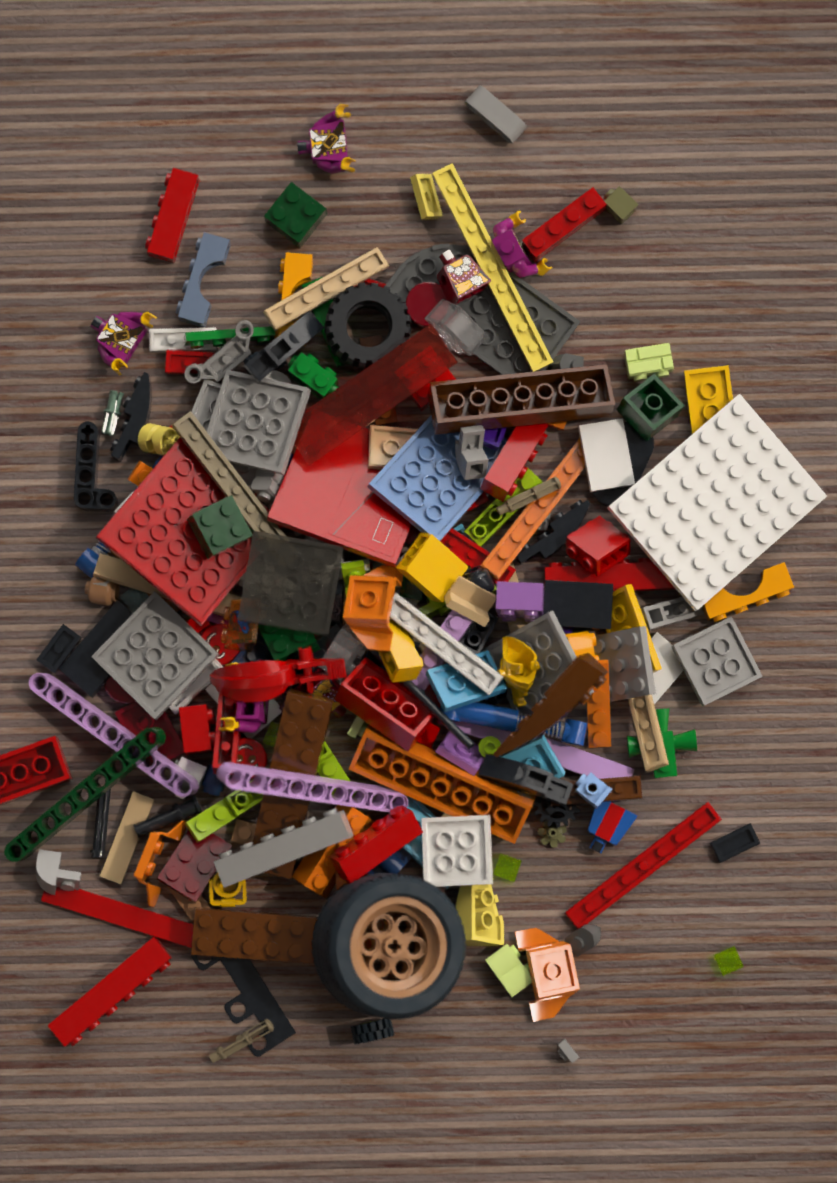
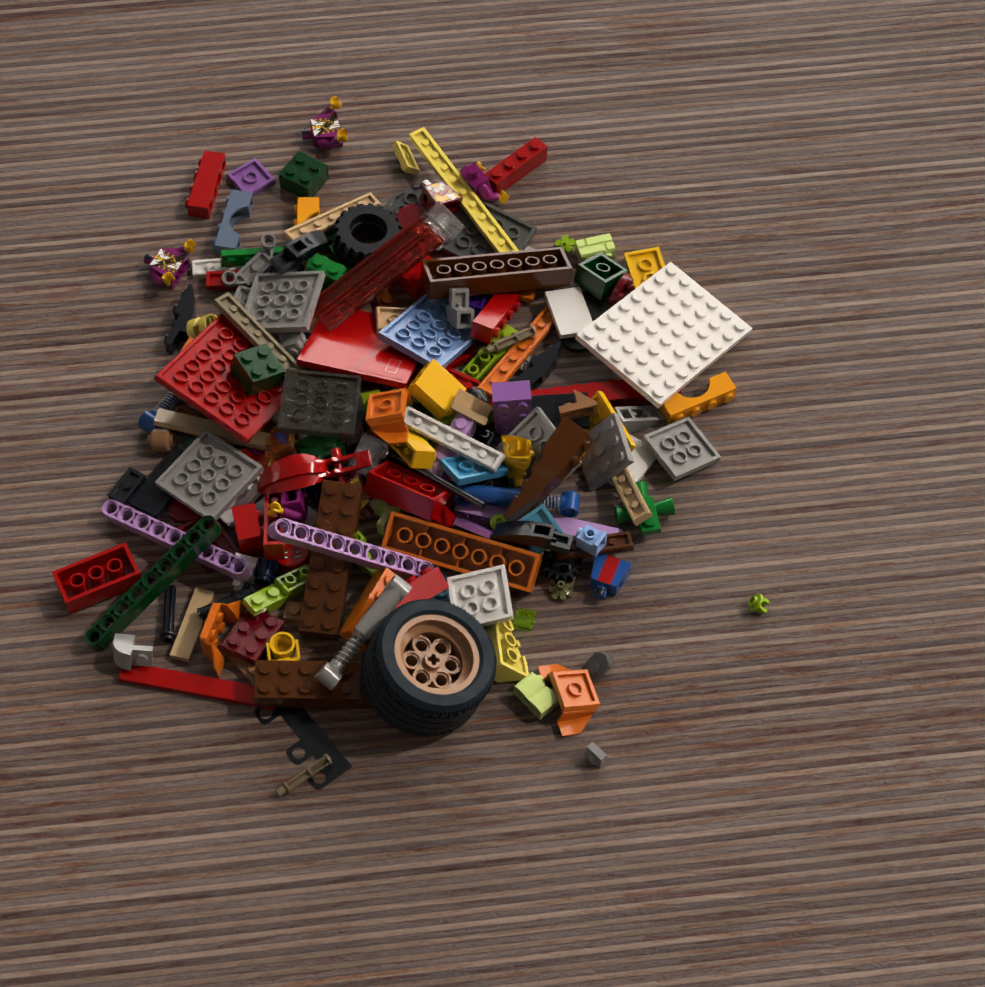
camera: 10 degrees left, 25 degrees down
(91, 466) = (145, 358): black beam -> none
(110, 991) = (183, 745): red brick -> none
(112, 413) = (164, 318): sand green axle -> none
(229, 207) = (251, 177): none -> medium lavender tile
(283, 848) = (329, 601): light grey brick -> none
(357, 858) = (365, 629): none -> light grey piece
(372, 1031) = (420, 751): black wheel -> none
(495, 114) = (454, 103): light grey beam -> none
(598, 545) = (571, 370): red brick -> none
(599, 714) = (588, 488): orange plate -> none
(605, 608) = (582, 407): none -> medium nougat slope
(613, 345) = (566, 243): none -> lime plant
(620, 204) = (558, 151): olive brick -> none
(643, 865) = (642, 606): red tile -> none
(668, 439) = (622, 287): none -> dark red tile
(728, 960) = (726, 674): clear neon green tile -> none
(734, 843) = (717, 583): black tile -> none
(775, 875) = (755, 603): none -> lime plate

